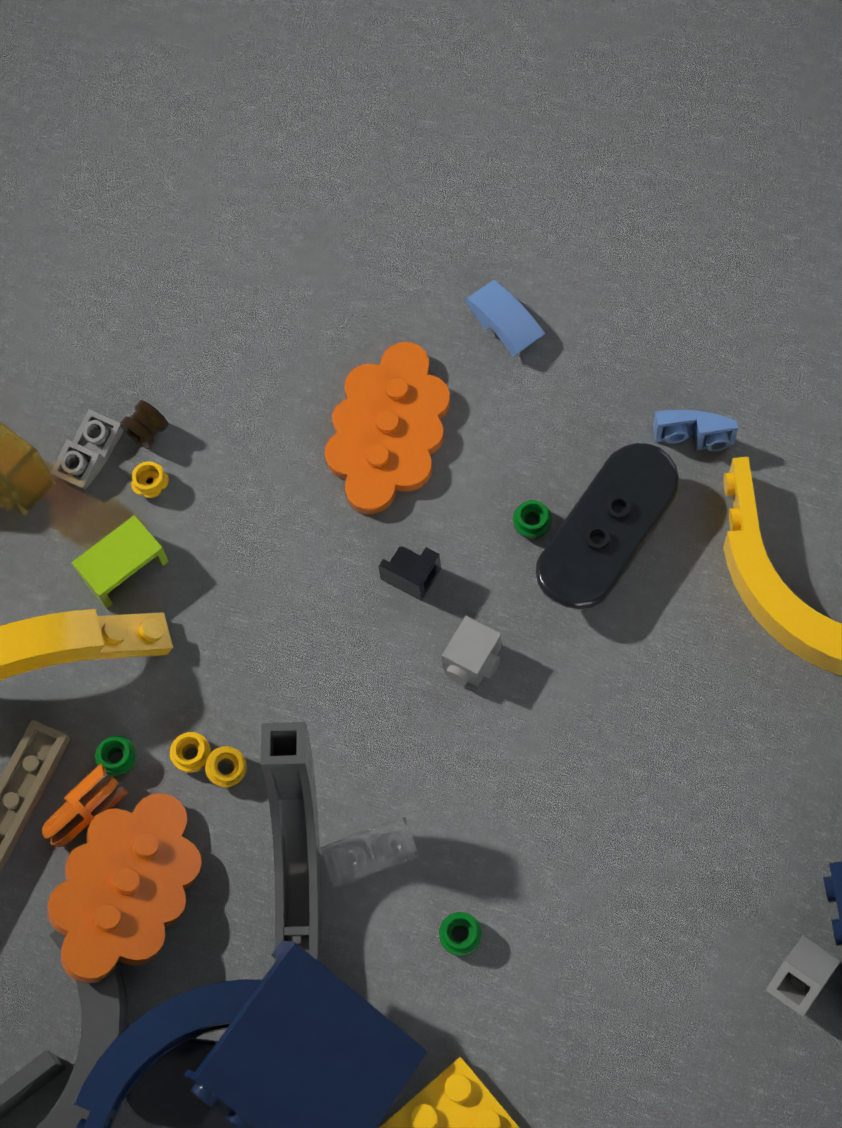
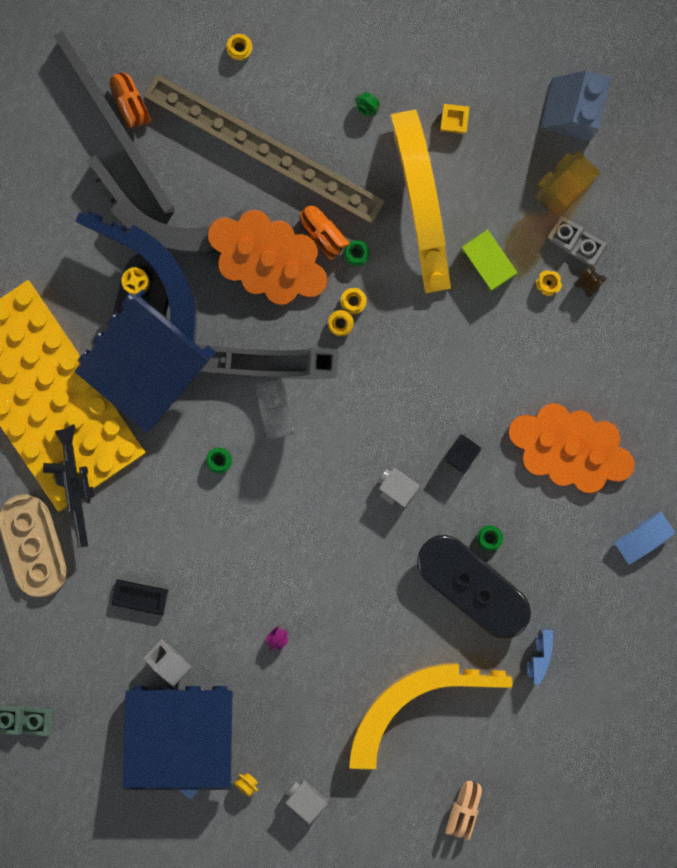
camera: 85 degrees right, 20 degrees up
(169, 1087) = (132, 279): none -> yellow wheel
(701, 1041) = (140, 597): none -> black tile
(732, 809) = (277, 638): none -> magenta plate

